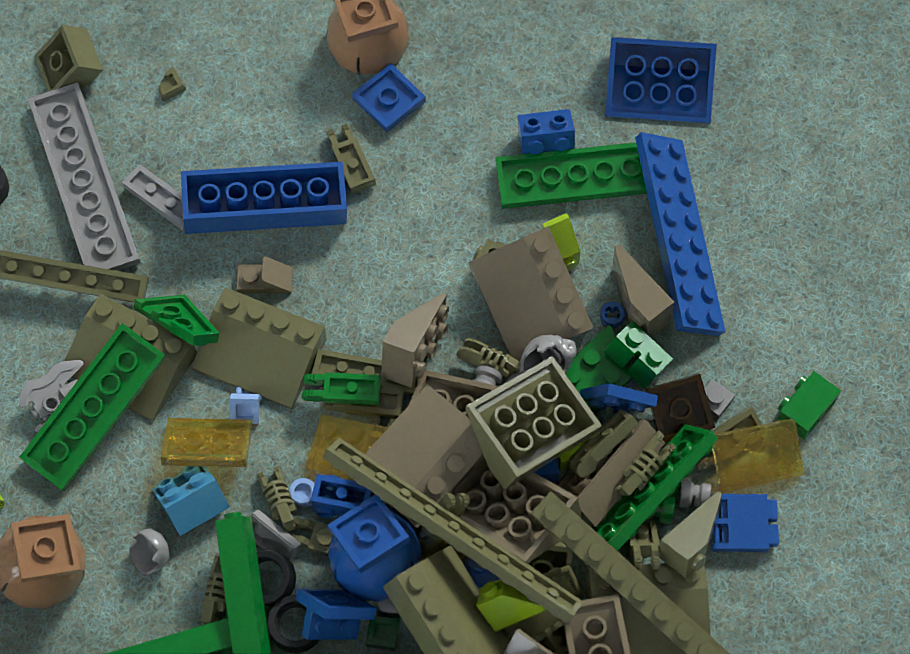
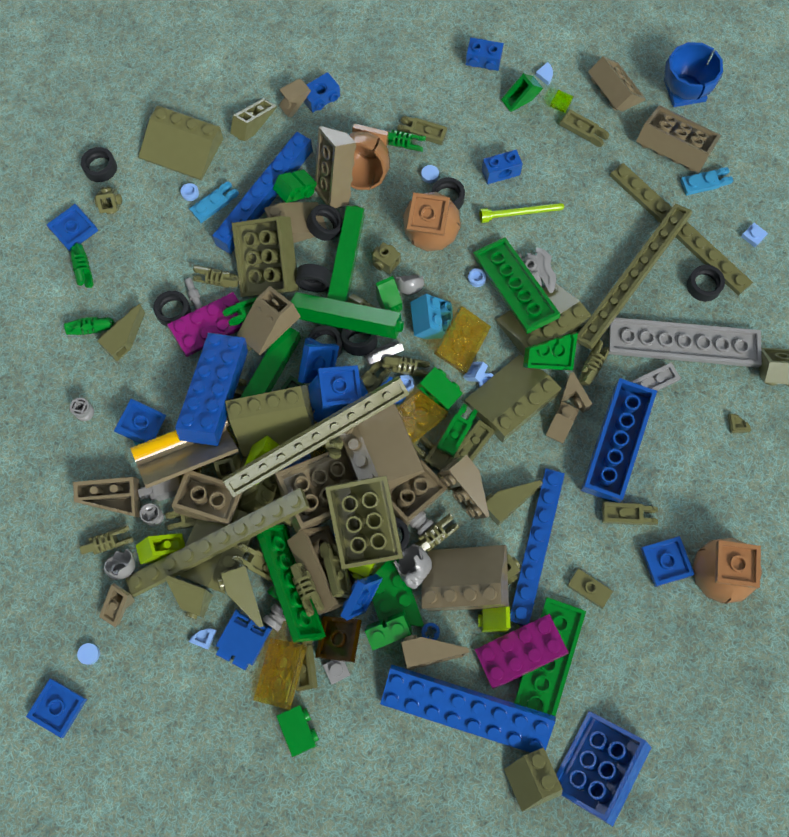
camera: 115 degrees right, 5 degrees up
(97, 471) = (477, 277): none -> light blue tile
(124, 601) = (386, 258): none -> olive brick
(167, 271) = (593, 364): none -> olive hinge
(188, 565) = (388, 295): none -> green slope
(215, 277) = (574, 390): none -> dark tan slope
(293, 438) = (439, 388): none -> green brick
(398, 290) = (506, 501): none -> olive slope
(433, 244) = (536, 548): none -> blue plate
(464, 167) = (590, 588): none -> olive plate
(546, 131) = (590, 656): blue brick -> none
(594, 212) = (521, 651): none -> magenta plate
(713, 135) = (533, 780): none -> olive slope
(730, 607) = (189, 597): none -> olive slope
(767, 574) = (203, 638): none -> light blue tile

